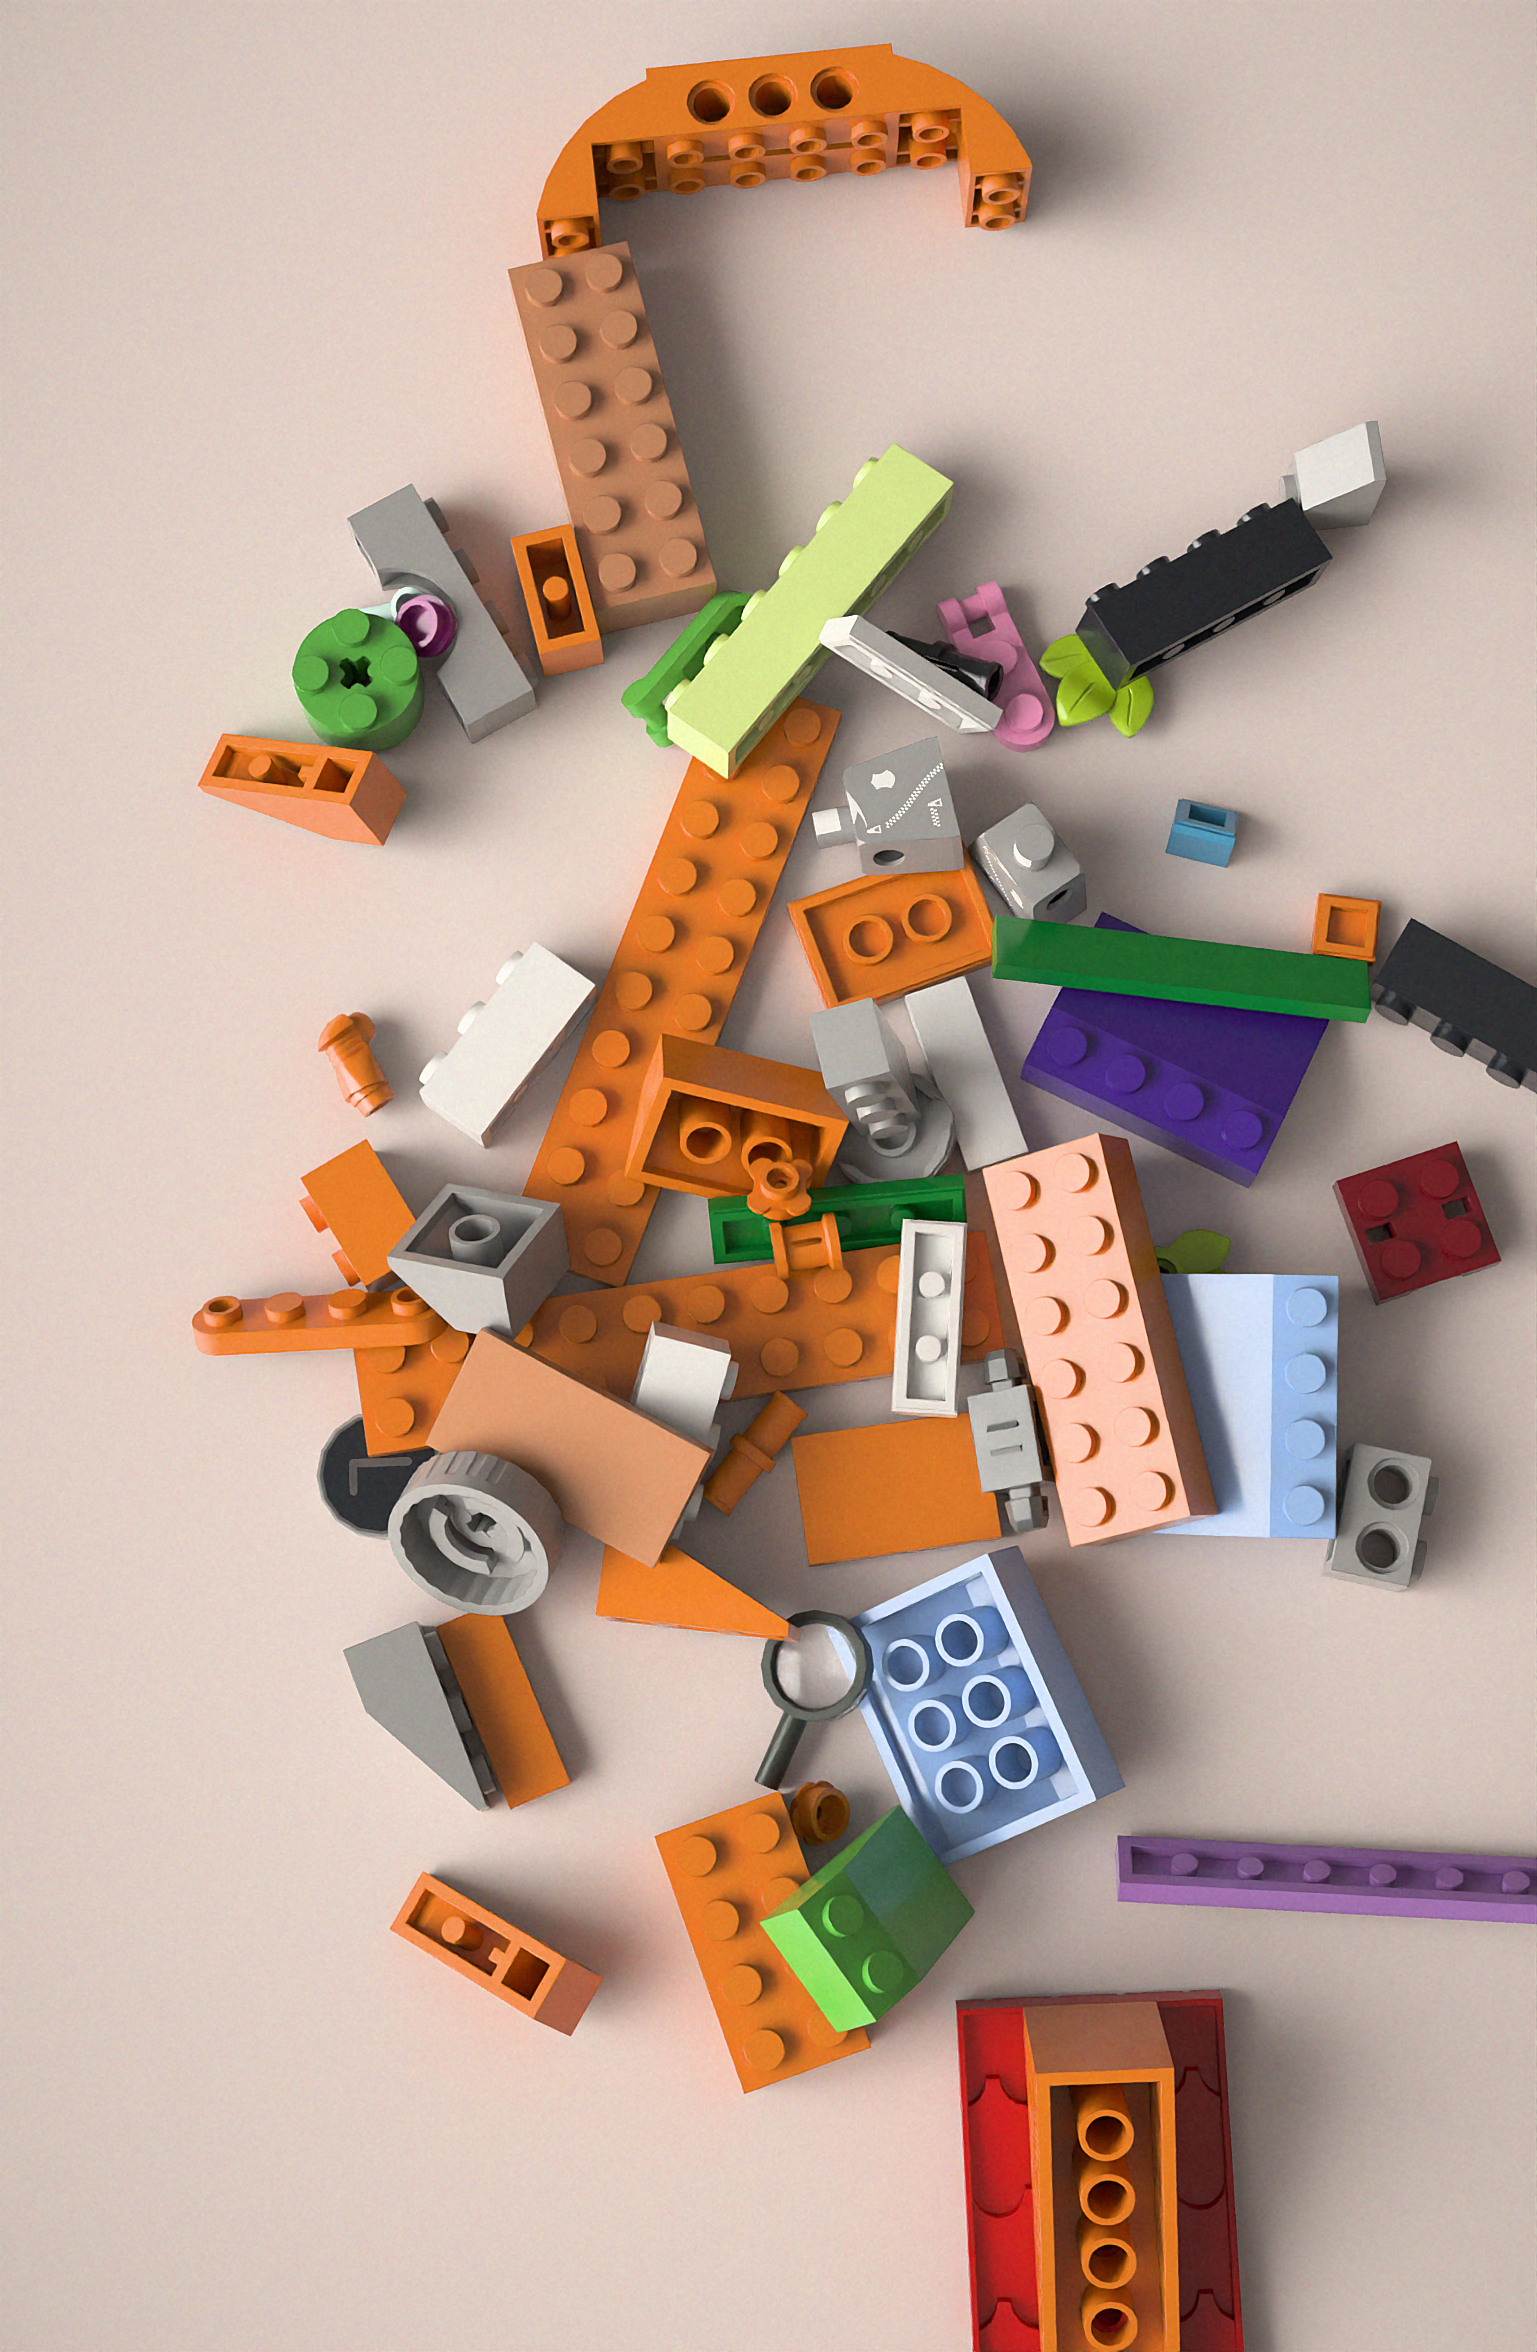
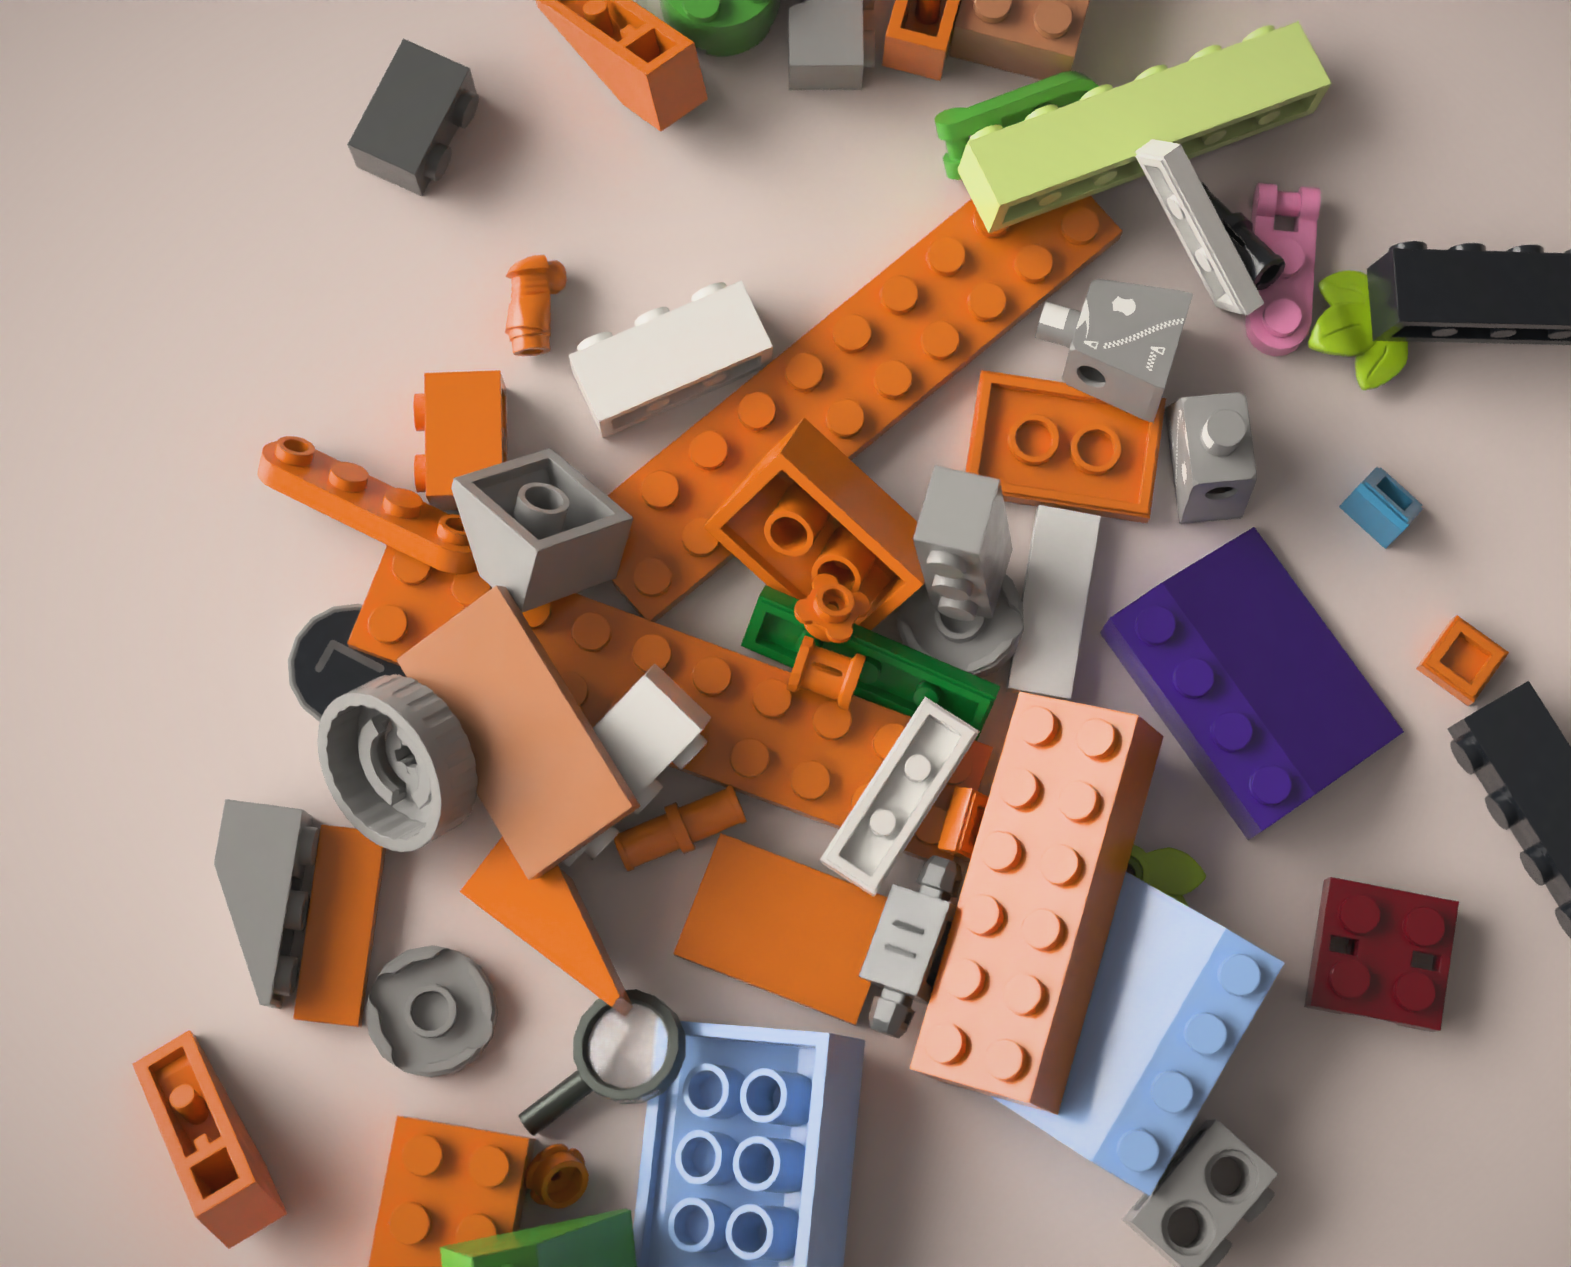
camera: 25 degrees right, 0 degrees up
(154, 954) = (414, 118): none -> dark grey brick
(626, 1734) = (431, 1011): none -> light grey tile
(997, 1310) = (962, 822): none -> orange tile
(1180, 969) = (1295, 614): green tile -> none

